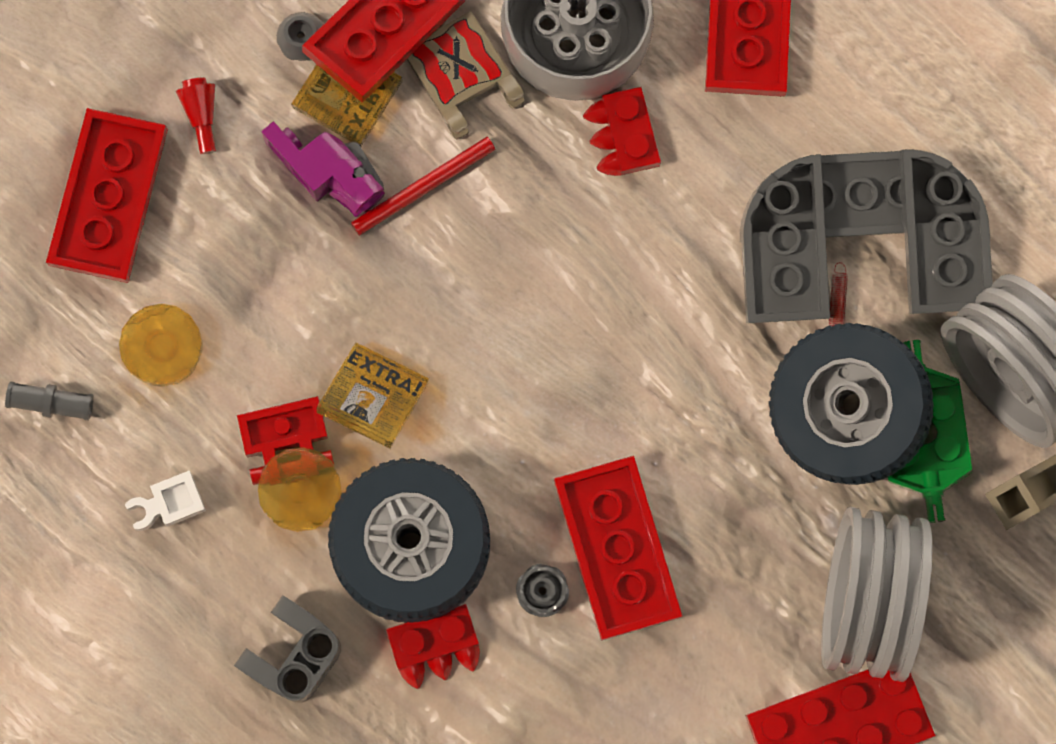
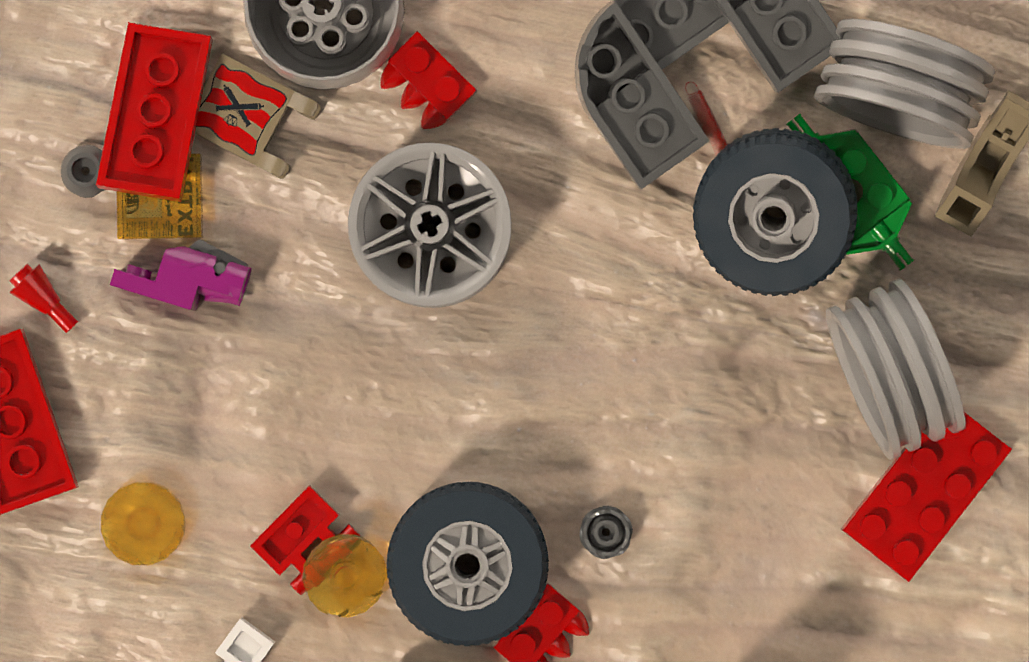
camera: 30 degrees left, 10 degrees up
(49, 401) = (79, 632): dark grey pin -> none
(372, 395) = (355, 455): clear yellow tile -> none
(423, 186) = (280, 239): red bar -> none
(589, 199) = (384, 192): none -> light grey wheel
(617, 548) = (647, 456): red plate -> none

